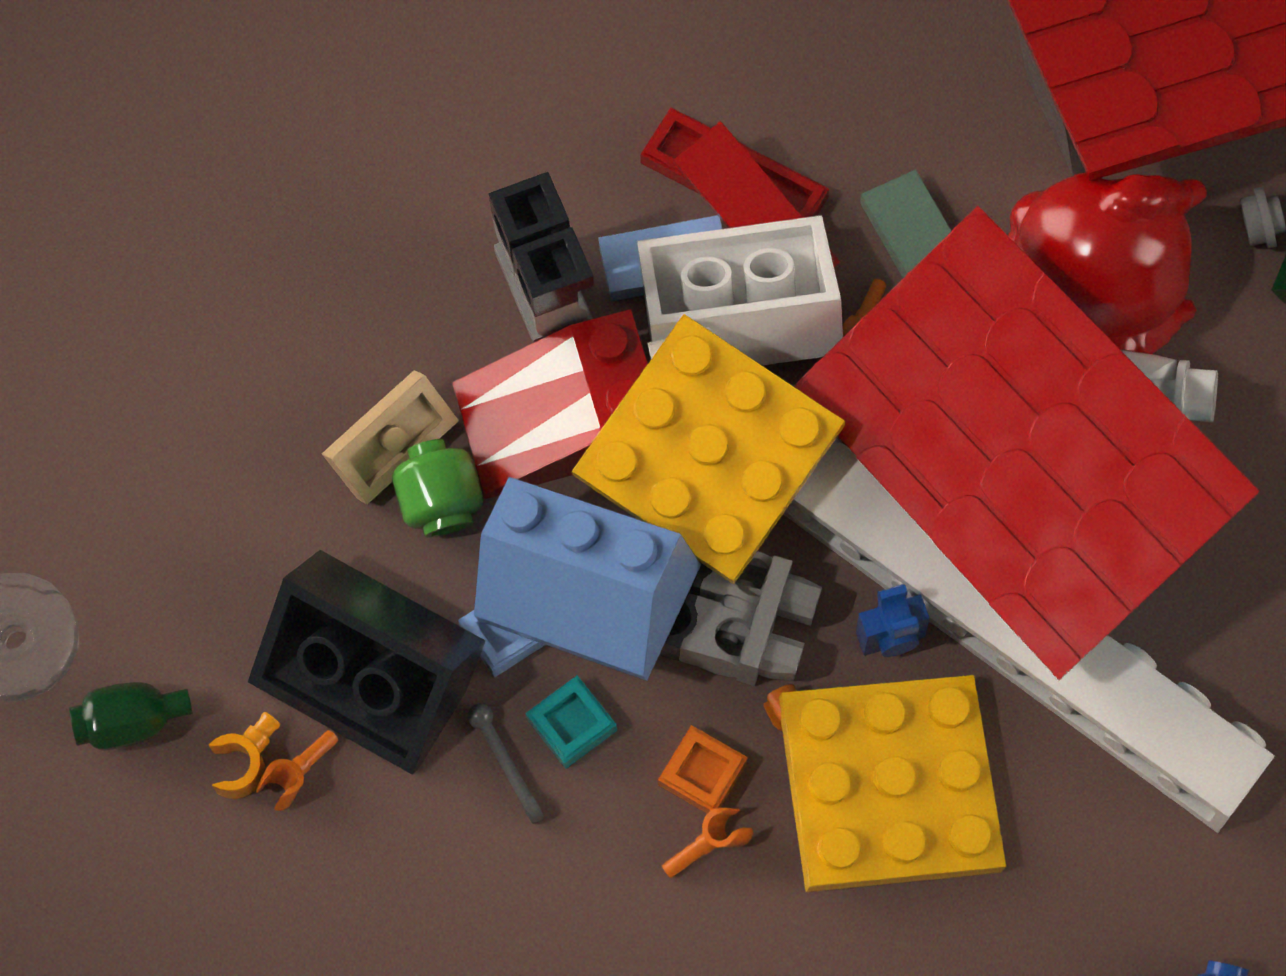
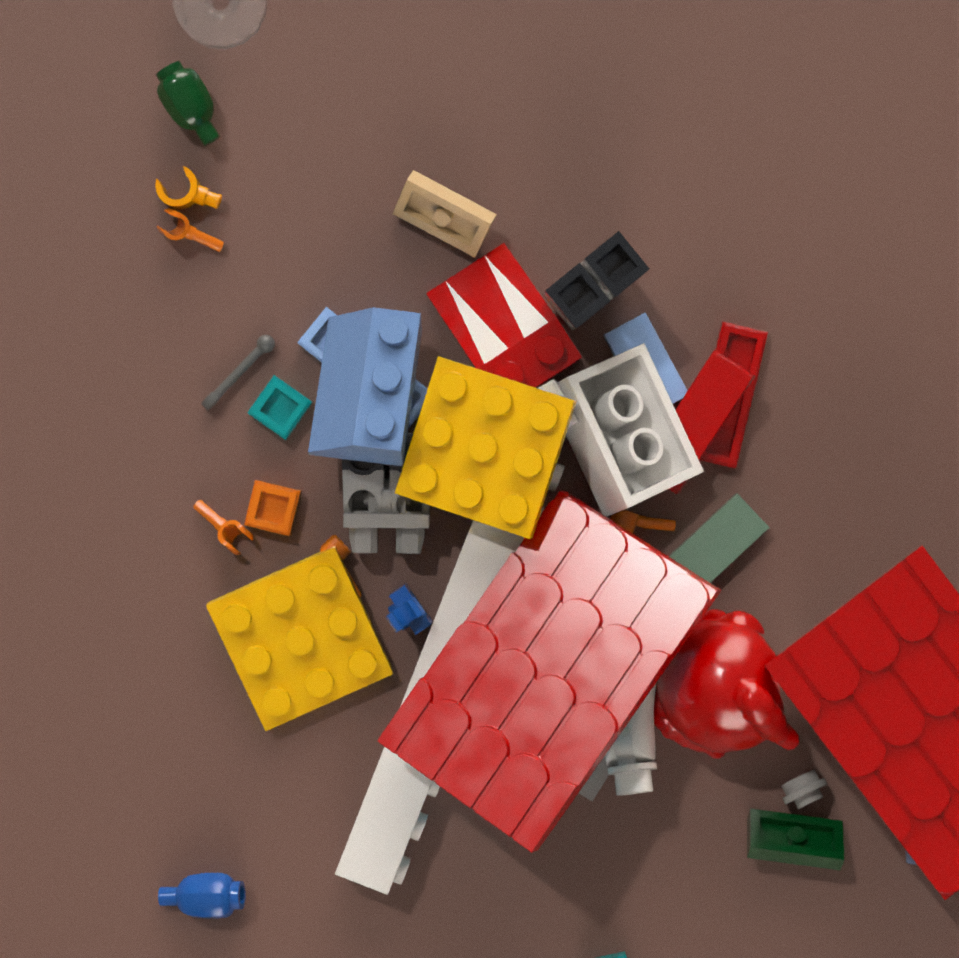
camera: 70 degrees right, 20 degrees up
(364, 660) = (277, 252): black slope -> none
(437, 488) = (415, 260): bright green head -> none

